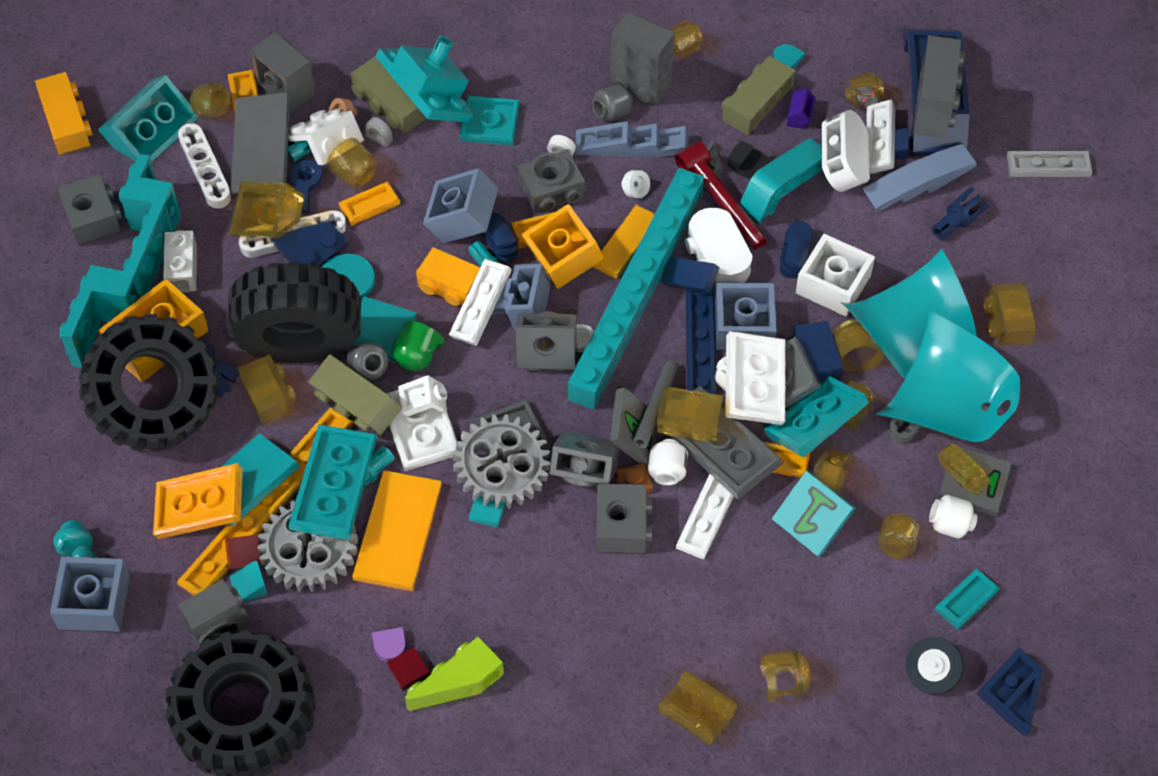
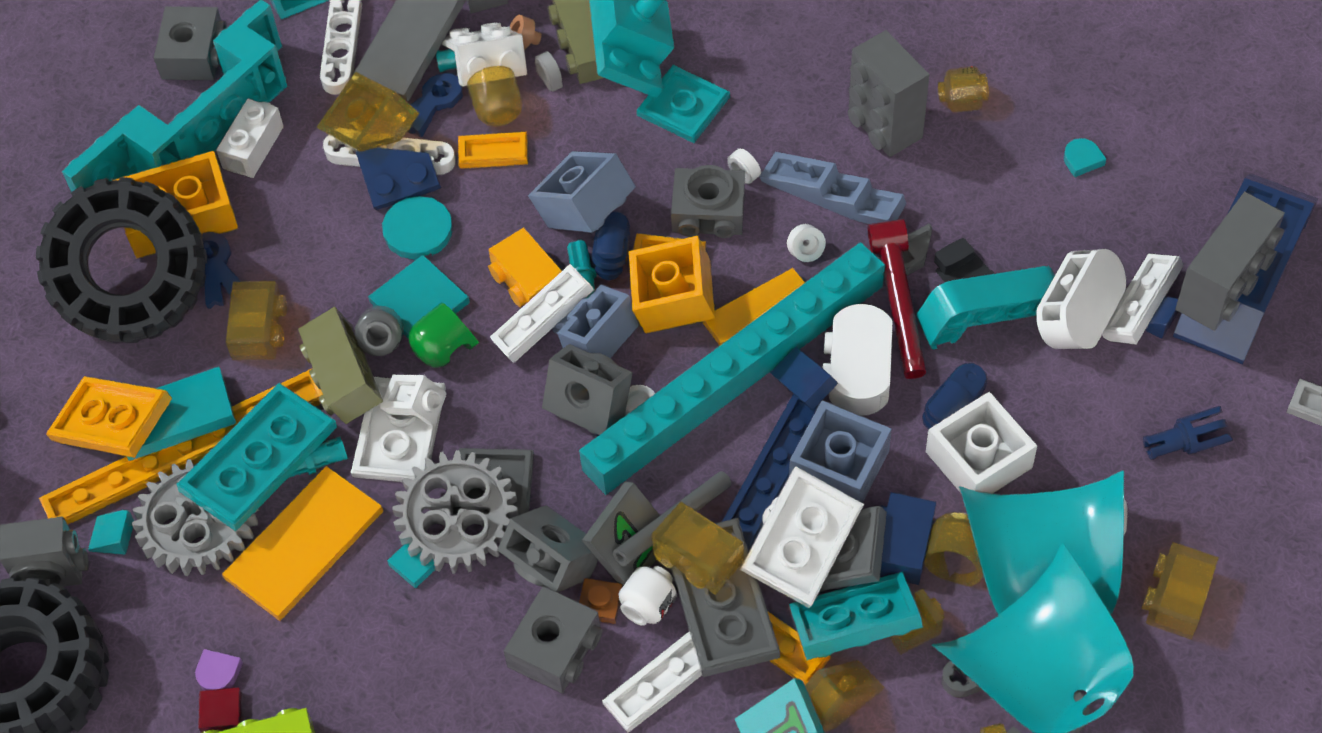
camera: 30 degrees right, 0 degrees up
(242, 551) = (121, 493): dark red tile -> none
(294, 312) = (312, 242): black tyre -> none
(612, 102) = (834, 134): dark grey head -> none
(758, 95) = (1016, 190): olive brick -> none
(801, 108) = (1047, 233): dark purple piece -> none
(864, 90) = (1154, 232): clear yellow head -> none
(921, 175) = (1163, 366): sand blue slope -> none

